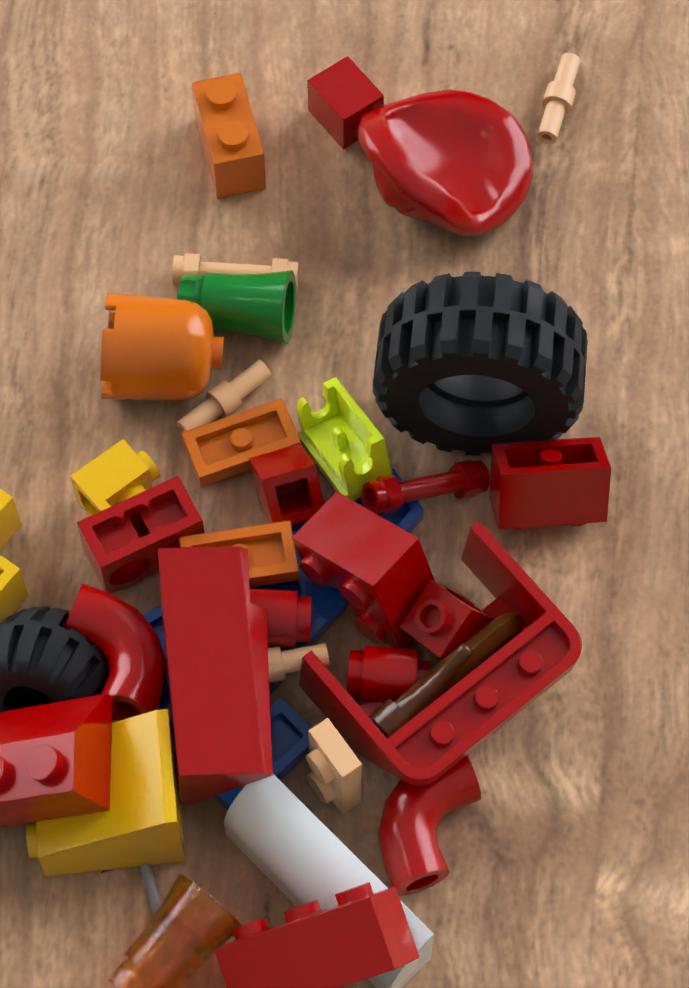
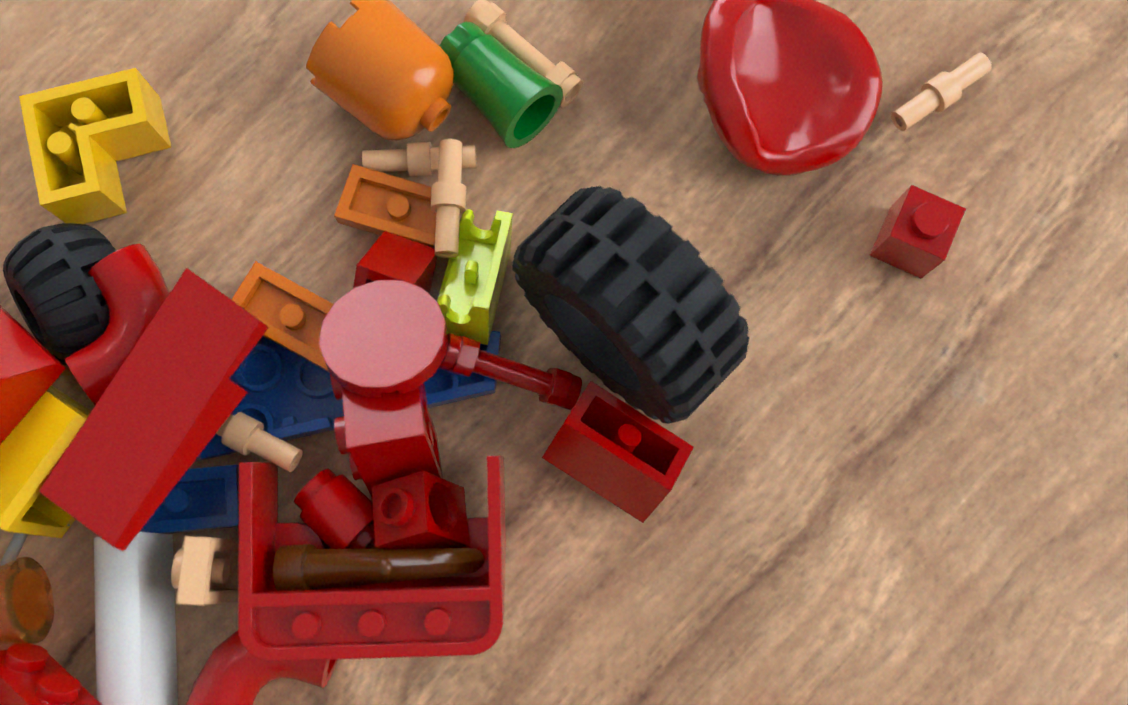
camera: 35 degrees right, 15 degrees up
(113, 477) = (262, 170): yellow brick -> none
(126, 536) = (237, 231): red brick -> none
(279, 401) = (448, 198): none -> light nougat bar
(286, 616) = (275, 394): red brick -> none
(329, 506) = (383, 338): none -> tile
(625, 198) = (917, 232): none -> red brick

